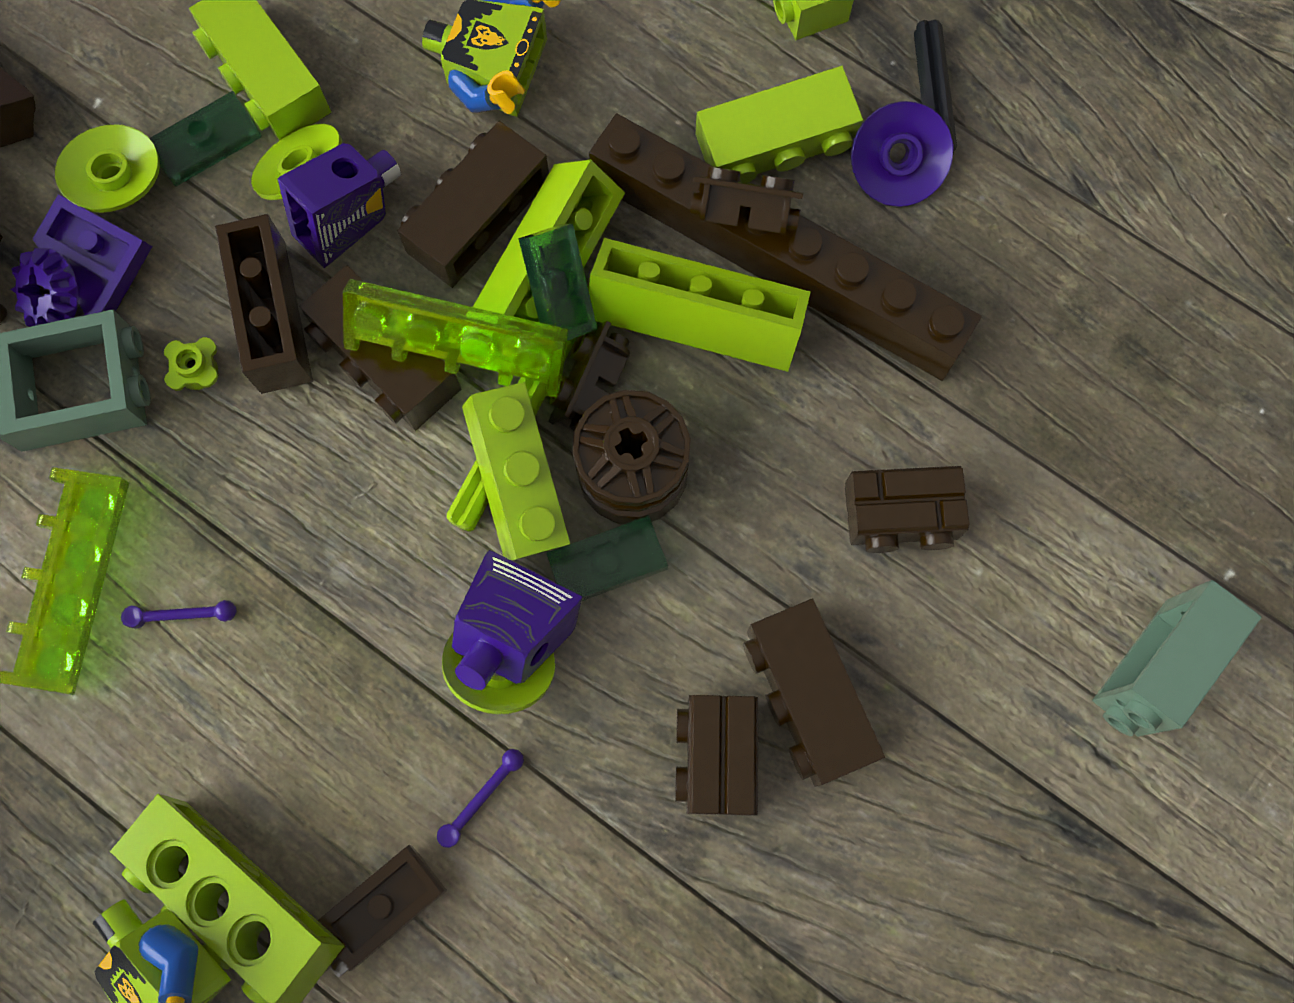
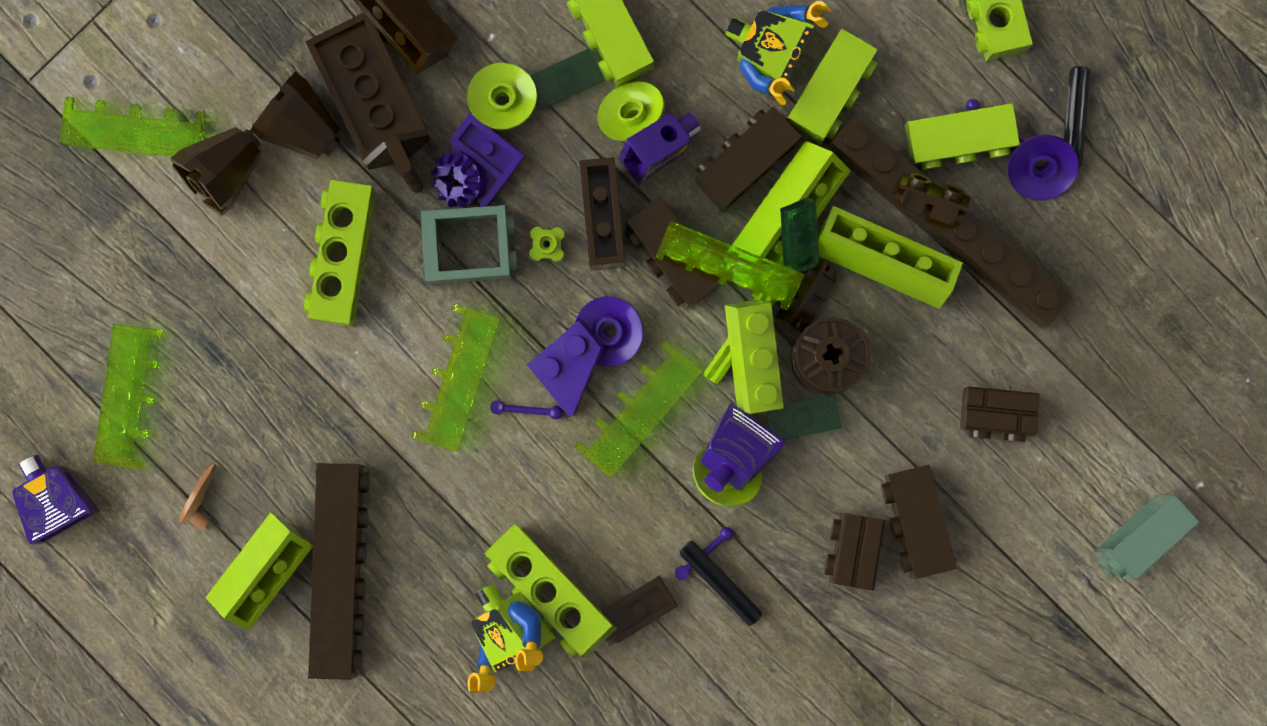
camera: 10 degrees right, 10 degrees up
(235, 534) = (568, 365): none -> dark purple wing
(270, 469) = (615, 311): none -> dark purple dish
(355, 591) = (641, 412): none -> clear neon green hinge
(511, 842) = (720, 583): none -> black axle
(584, 87) = (833, 87): none -> lime brick

